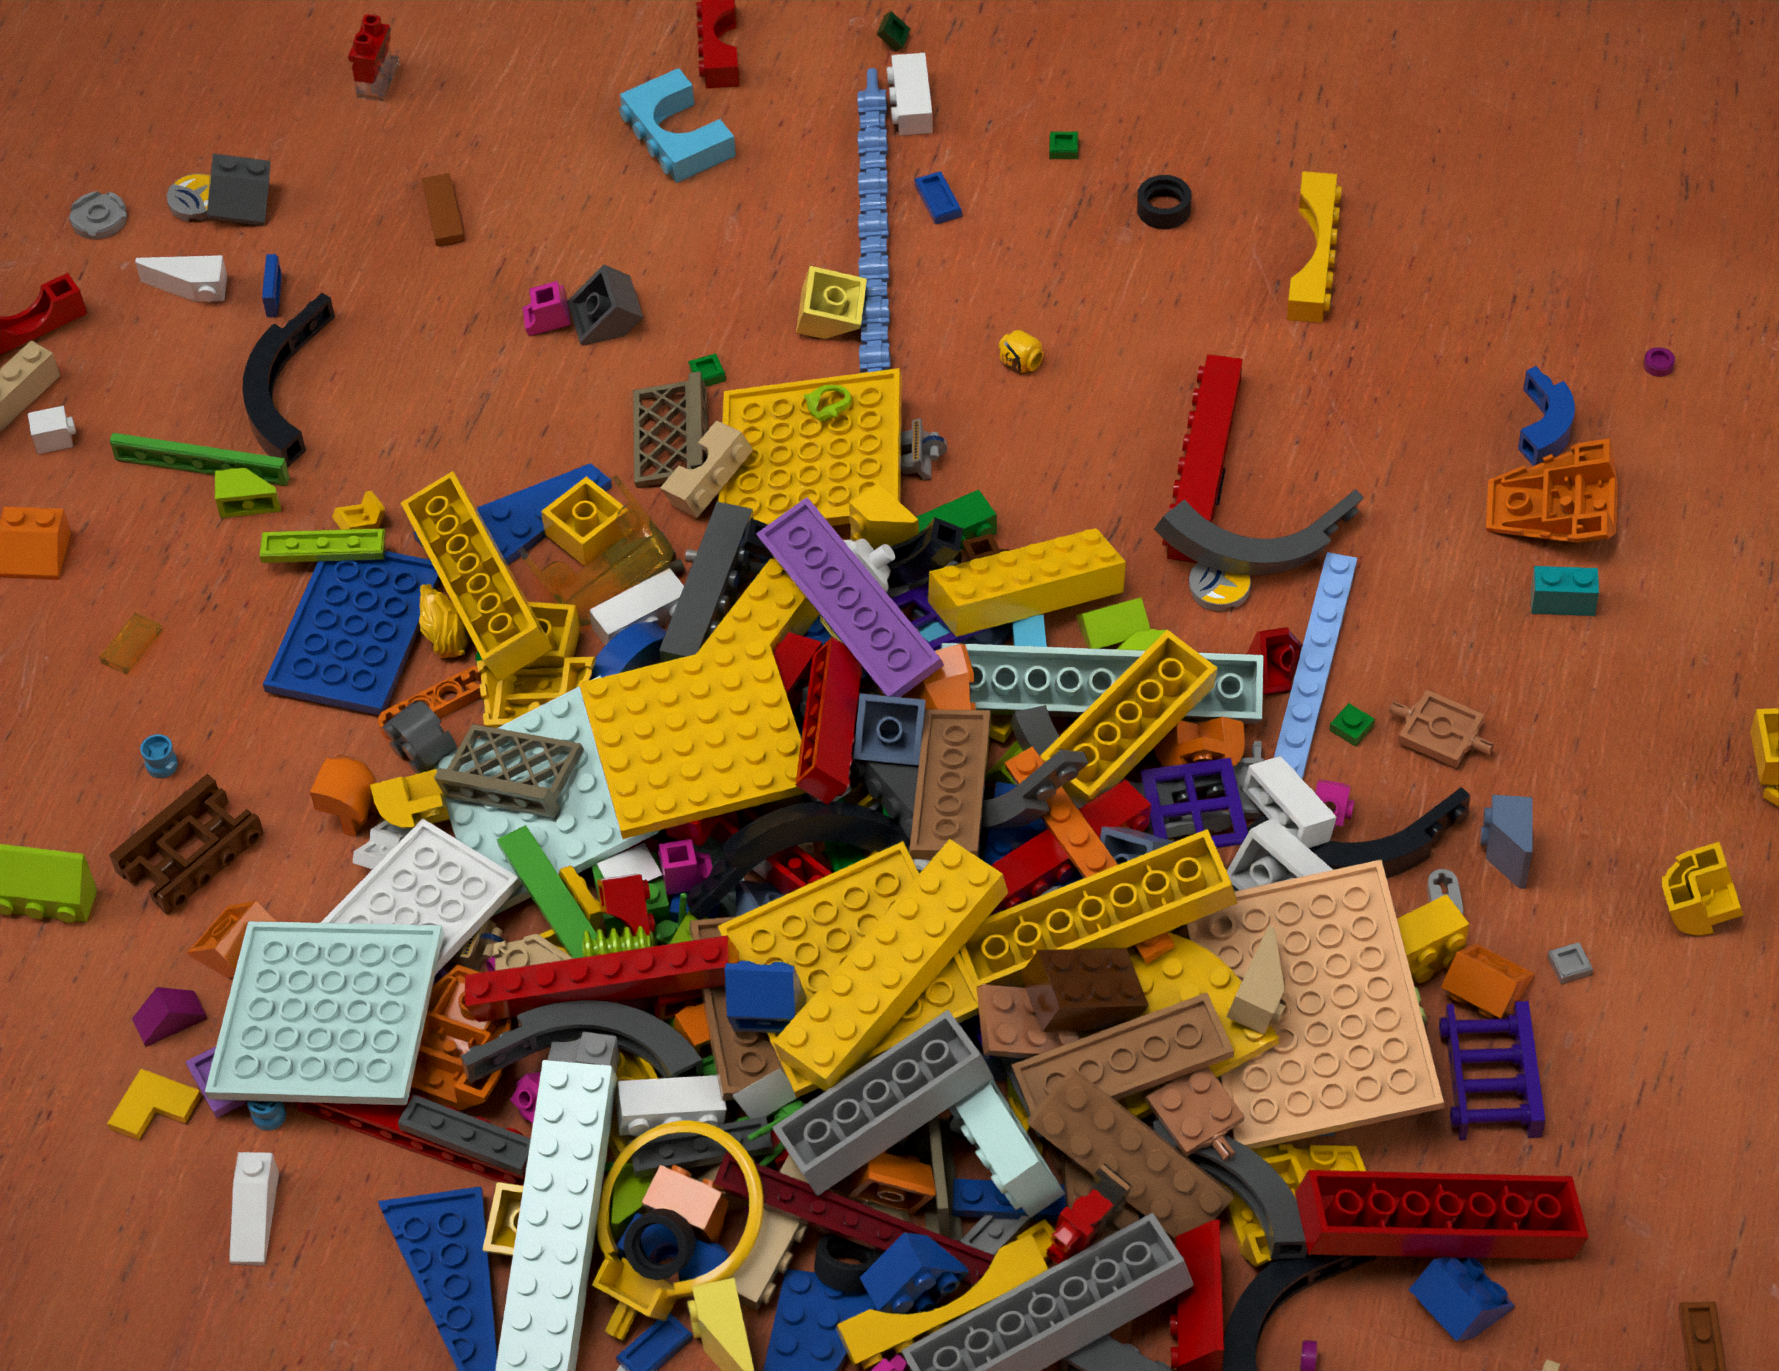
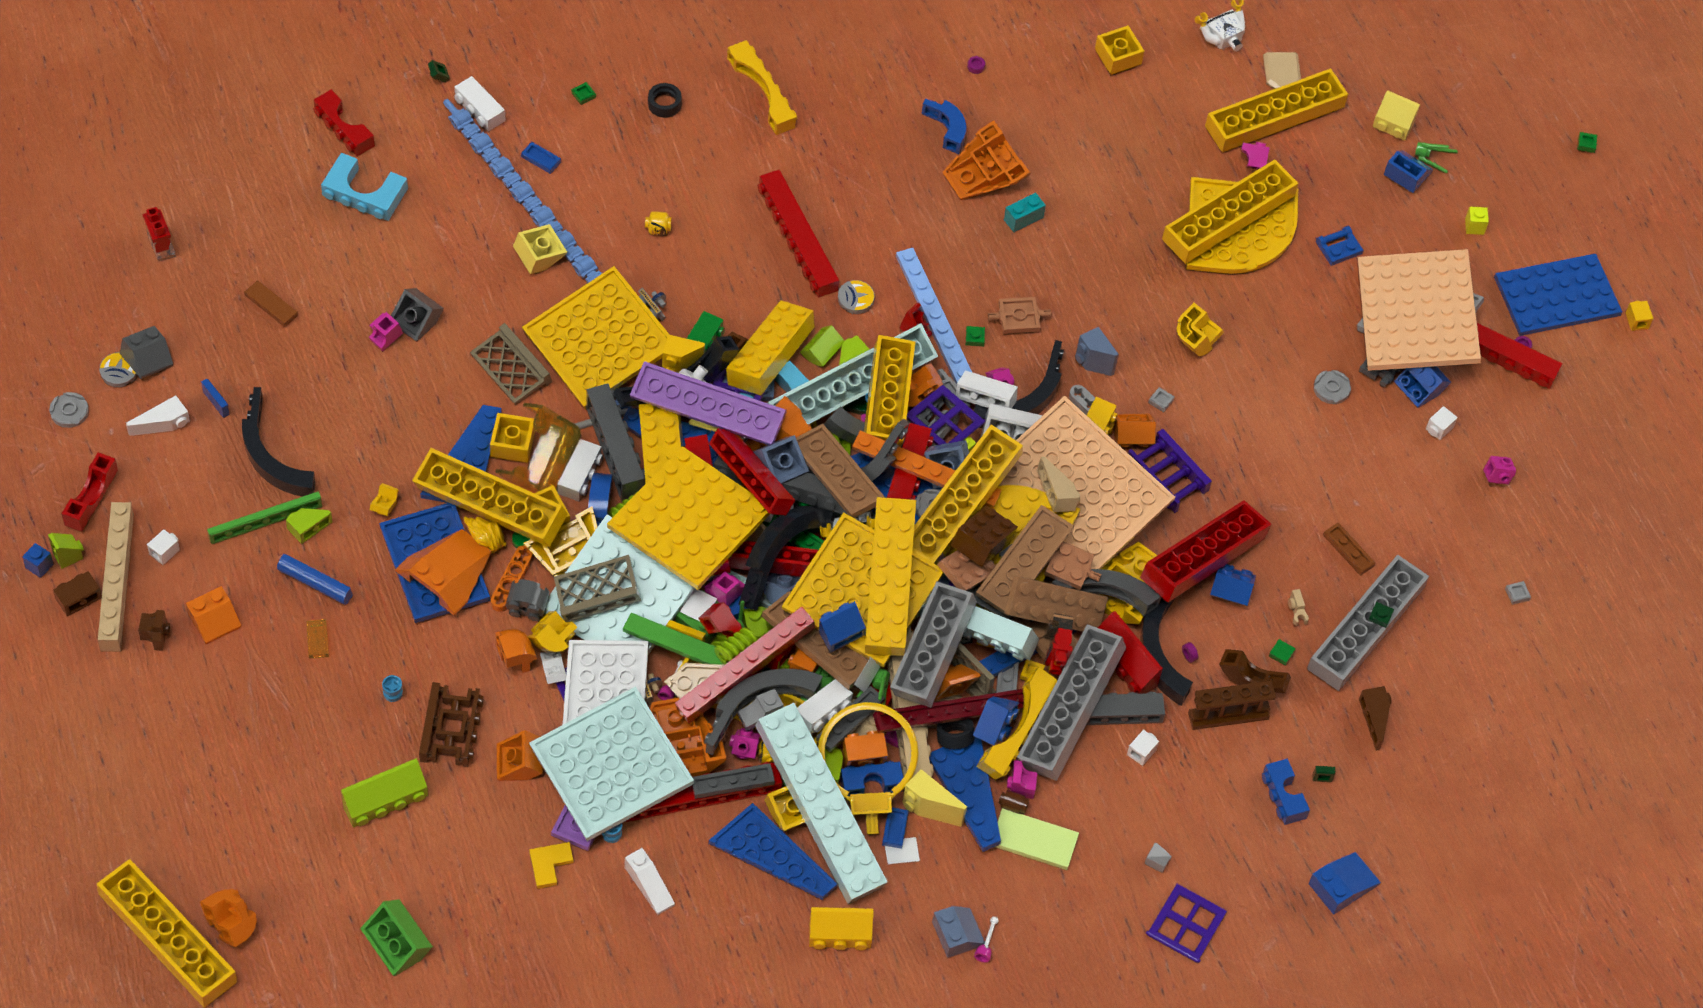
camera: 45 degrees left, 5 degrees up
(167, 1013) = (517, 816): magenta slope -> none
(189, 568) = (314, 579): none -> blue brick
(323, 545) = (381, 527): lime tile -> none
(357, 643) = (448, 568): none -> orange wedge
(638, 1258) = (882, 785): black tyre -> none
(695, 488) = (554, 389): tan arch -> none
(710, 369) = (498, 318): green tile -> none
(829, 411) = (596, 309): lime piece -> none
(1251, 556) = (853, 278): dark grey arch -> none

